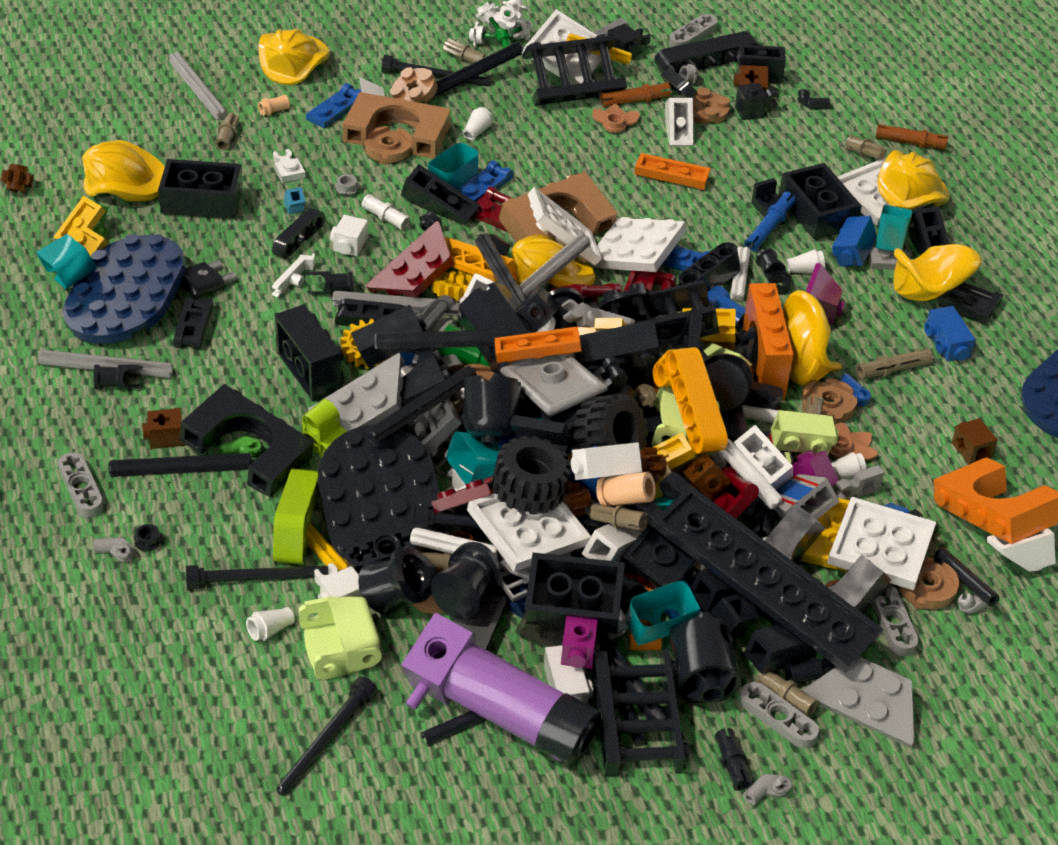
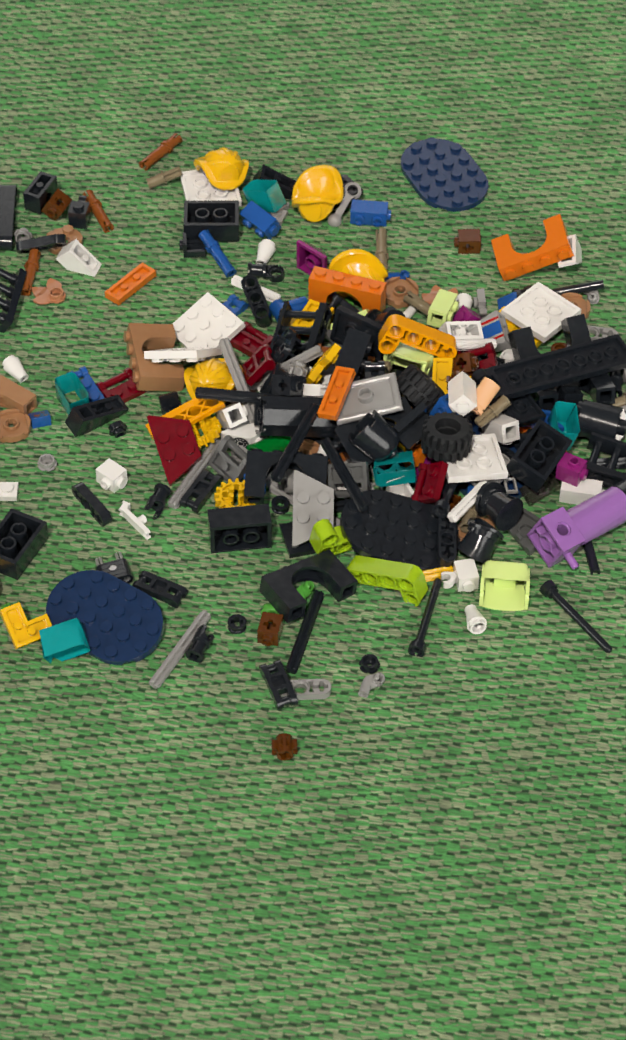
camera: 65 degrees left, 5 degrees up
(68, 454) = (278, 684): none -> black plate
(166, 394) = (237, 629): none -> black bush
(294, 200) = (53, 495): dark azure piece -> none
(386, 212) = (92, 449): white pin -> none
(410, 160) = (40, 419): none -> blue slope
(778, 112) = (96, 208): none -> dark orange pin
(812, 103) = (92, 185): black arm -> none
(919, 309) = (335, 219): none -> light grey piece

